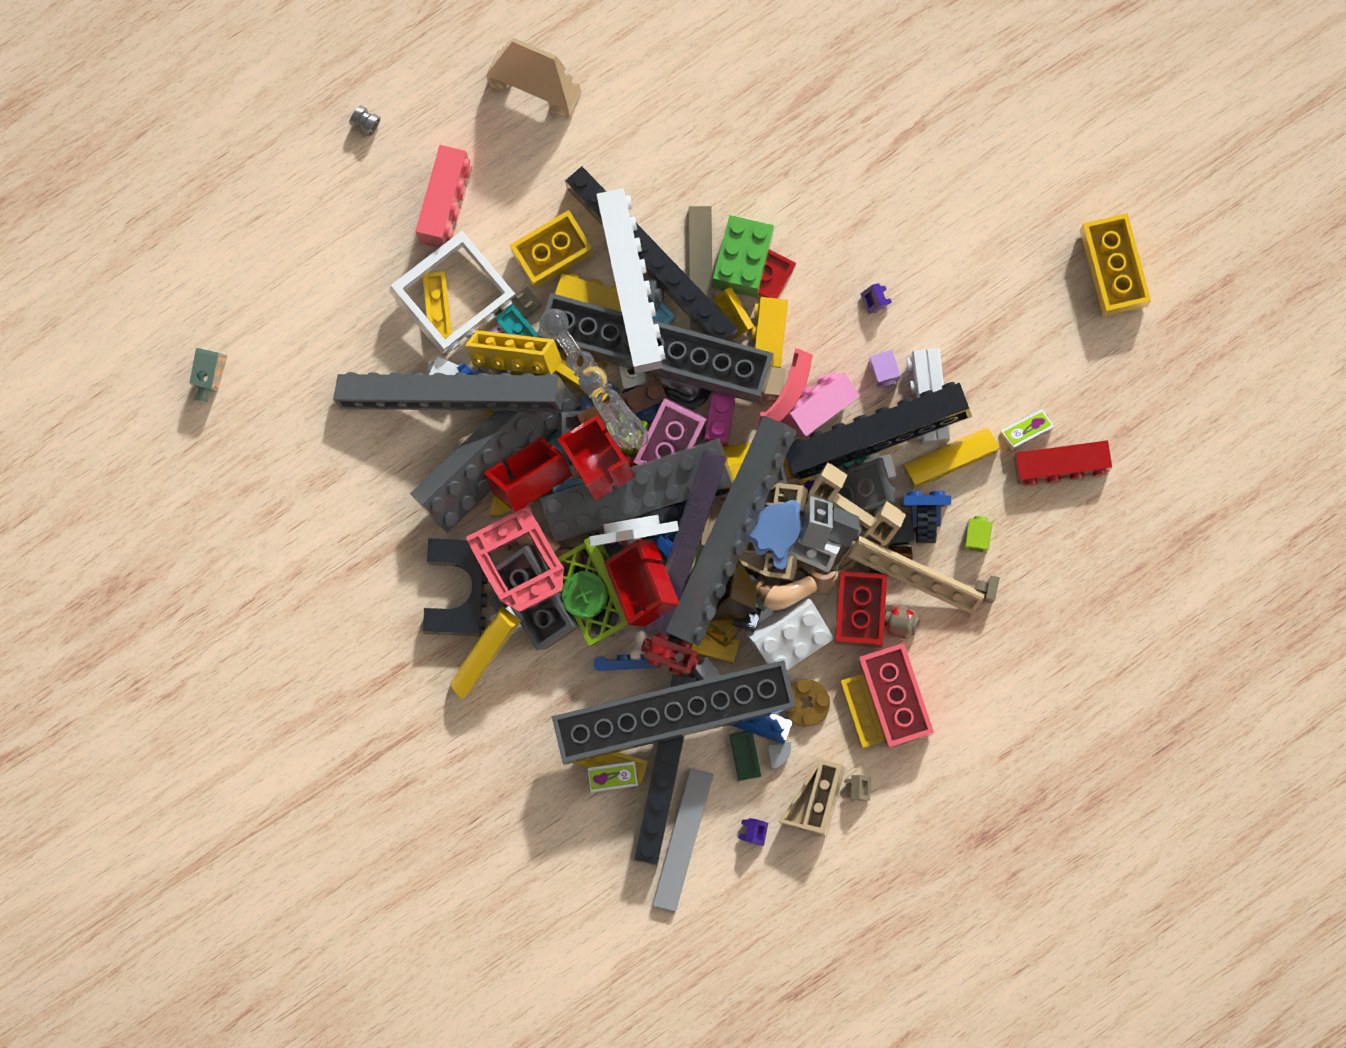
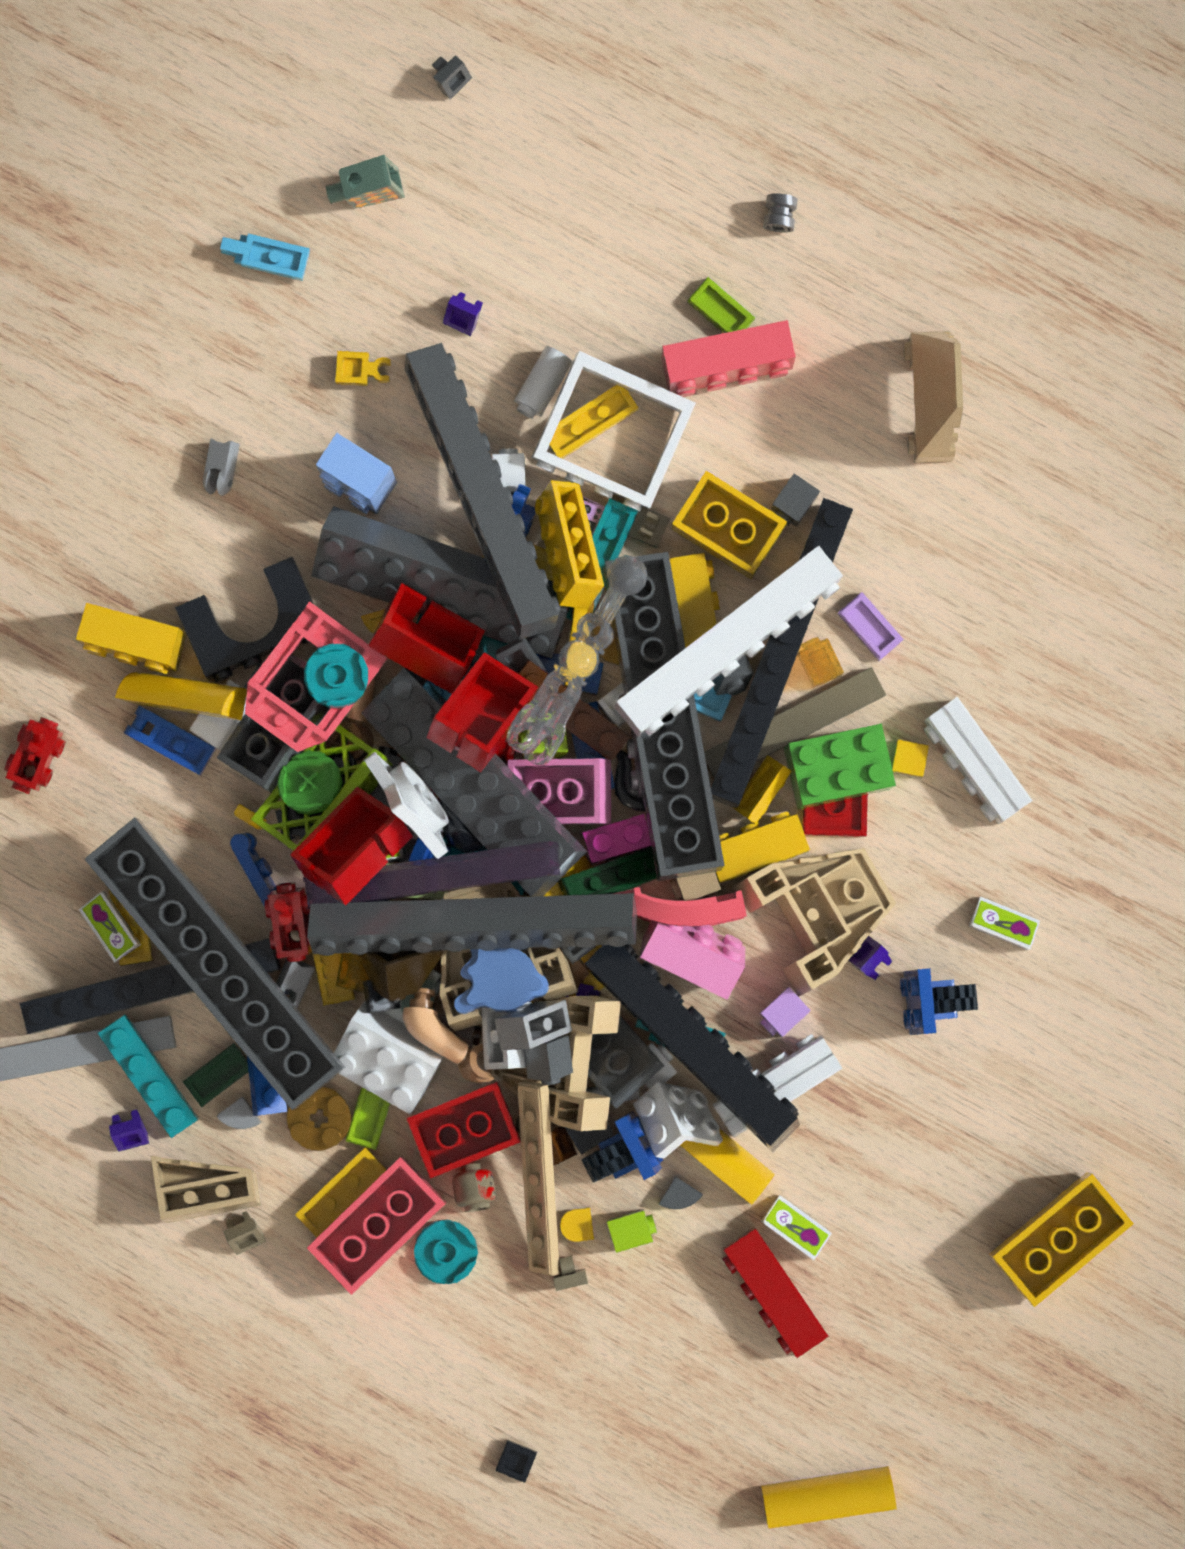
camera: 65 degrees right, 5 degrees up
(163, 285) = (451, 75): none -> dark grey tile
(219, 460) = (268, 255): none -> medium azure hinge
(325, 353) = (462, 314): none -> dark purple tile
(325, 440) = (355, 368): none -> yellow plate
(342, 558) = (220, 466): none -> light grey piece
(396, 323) = (542, 382): none -> white brick
(396, 468) = (356, 474): none -> light blue brick
(406, 189) = (720, 308): none -> lime tile
(428, 669) = (130, 638): none -> yellow brick
(466, 766) = (37, 747): none -> red brick
(508, 679) = (171, 741): none -> blue plate
(517, 645) = (213, 729): none -> white brick
(523, 542) = (336, 676): none -> teal tile
(555, 200) = (795, 500): none -> dark grey brick
(584, 652) = (245, 814): none -> yellow tile
(661, 195) = (870, 626): none -> lavender tile
(669, 236) = (819, 661): none -> clear yellow brick
(723, 800) = (148, 1076): none -> teal plate
(742, 431) = (612, 876): none -> dark green tile
(759, 210) = (910, 758): none -> yellow tile
(783, 169) = (977, 761): none -> white brick
(822, 670) = (368, 1120): none -> lime tile
(829, 308) = (829, 905): none -> tan wedge
(895, 204) = (1004, 923): none -> slope
(919, 468) = (675, 1115): none -> white bracket
(923, 271) = (933, 1000): none -> blue plate
(934, 662) = (445, 1252): none -> teal tile
(958, 568) = (577, 1225): none -> yellow tile
(970, 493) = (680, 1195): none -> dark grey tile
(1092, 682) = (516, 1461): none -> black tile
(1211, 493) = (828, 1497): none -> yellow brick

